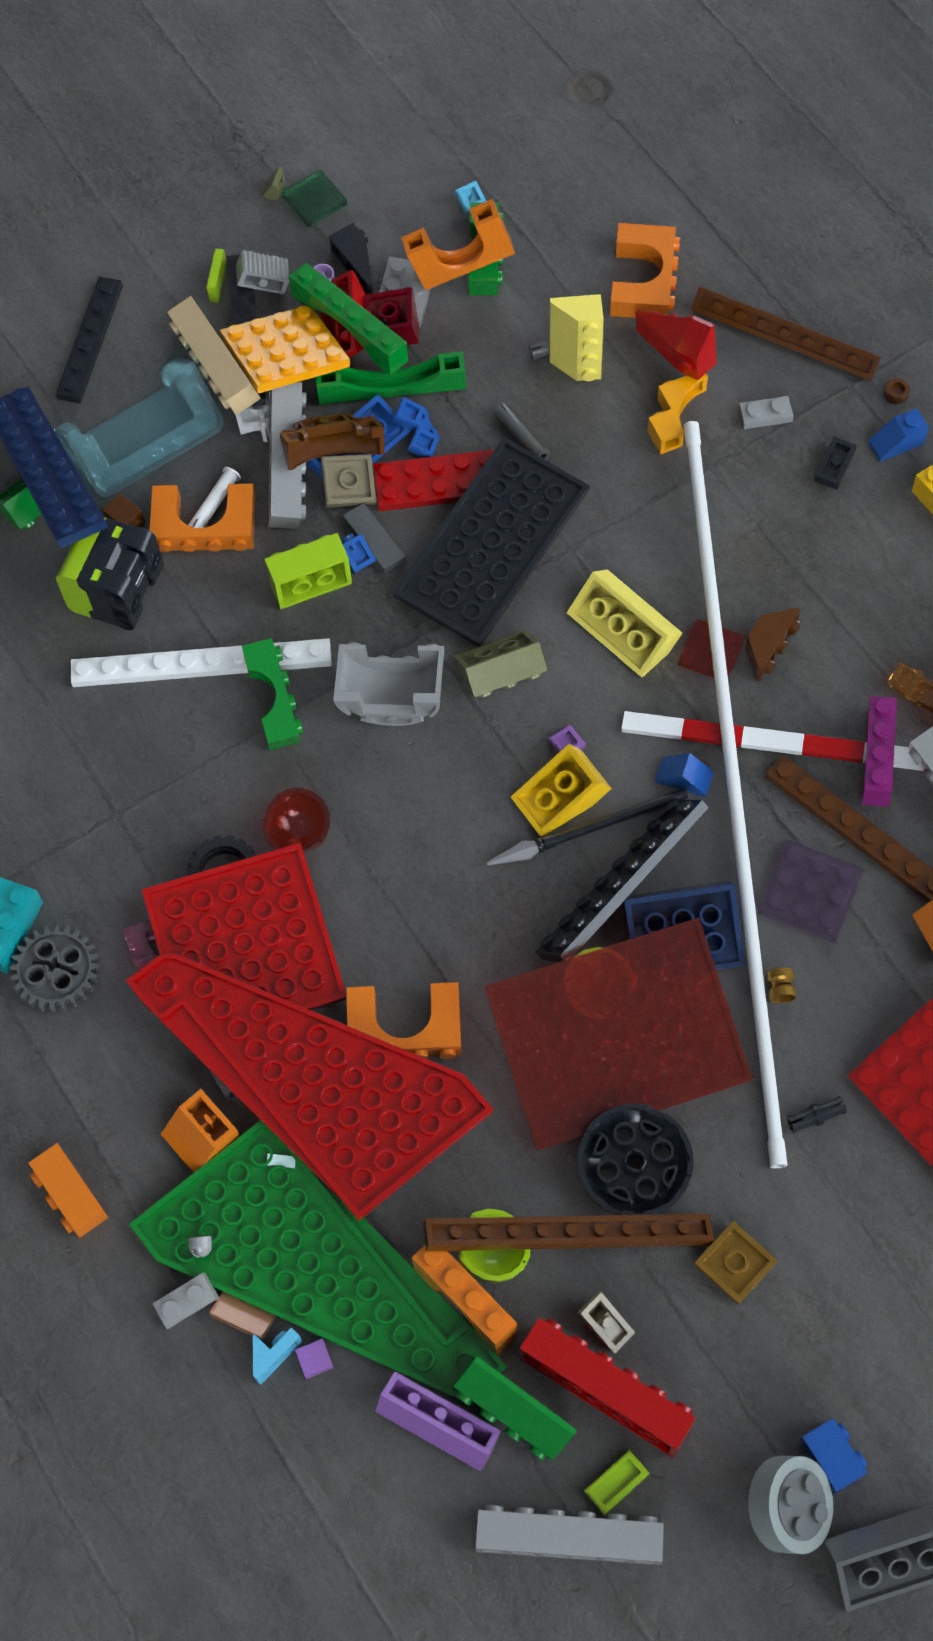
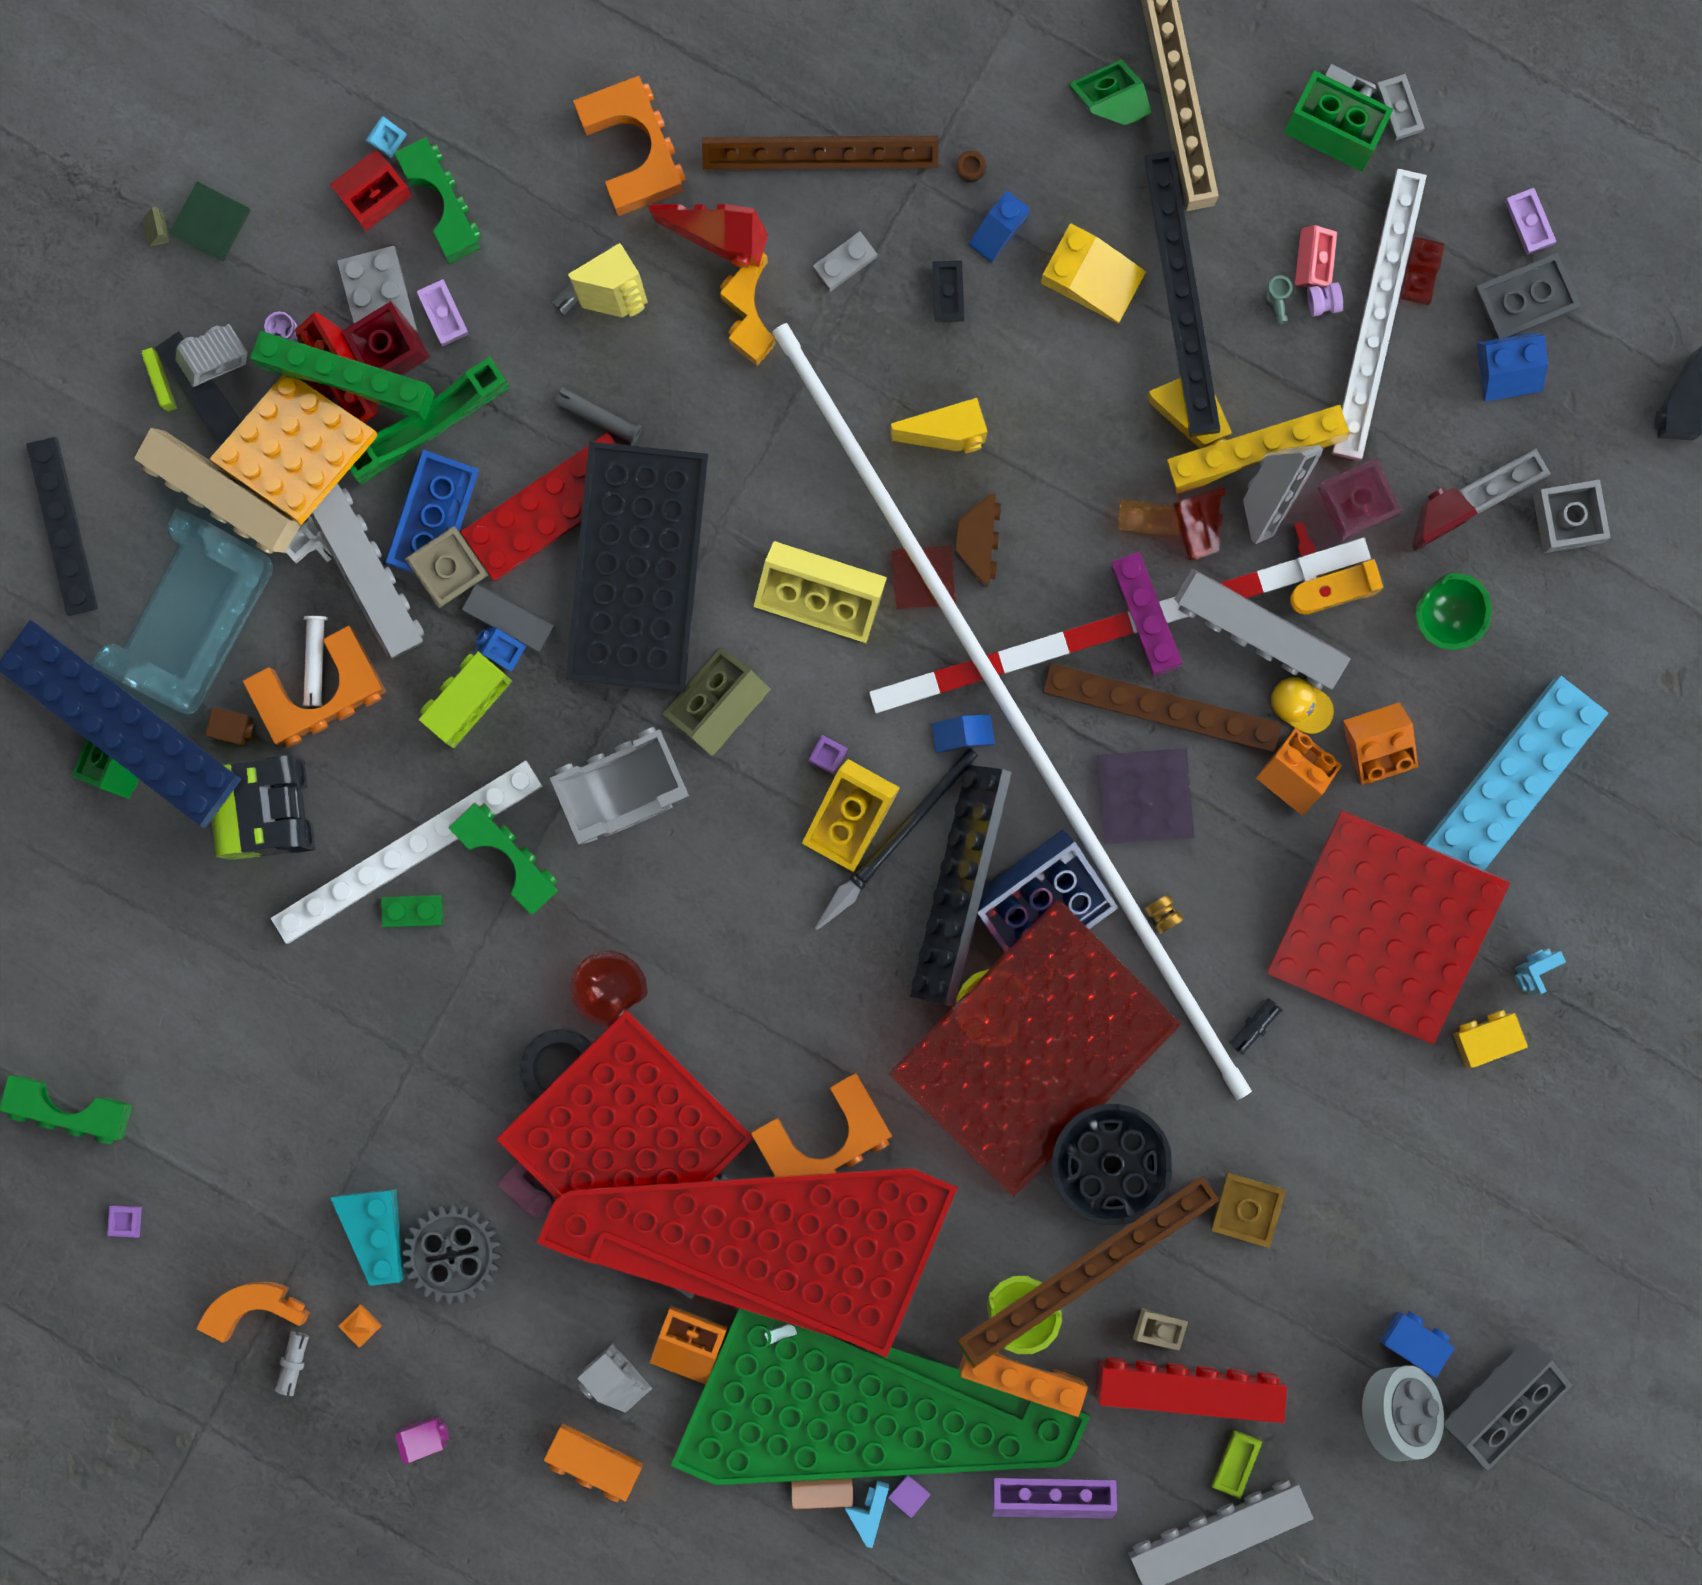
camera: 30 degrees left, 20 degrees up
(121, 1123) = (613, 1380): none -> light grey wedge
(179, 706) = (412, 911): none -> green plate
(185, 1300) = (764, 1507): light grey plate -> none
(200, 1246) = (750, 1453): light grey hinge -> none
(330, 436) = (400, 528): reddish brown windscreen -> none
(350, 249) = (292, 273): black slope -> none
(417, 418) = (477, 454): blue tile -> none
(440, 266) = (401, 261): orange arch -> none
(442, 222) = (371, 190): none -> red slope
(445, 319) = (442, 312): none -> lavender plate
(514, 1408) = (1117, 1453): green slope -> none
(781, 546) = (947, 428): none -> yellow slope

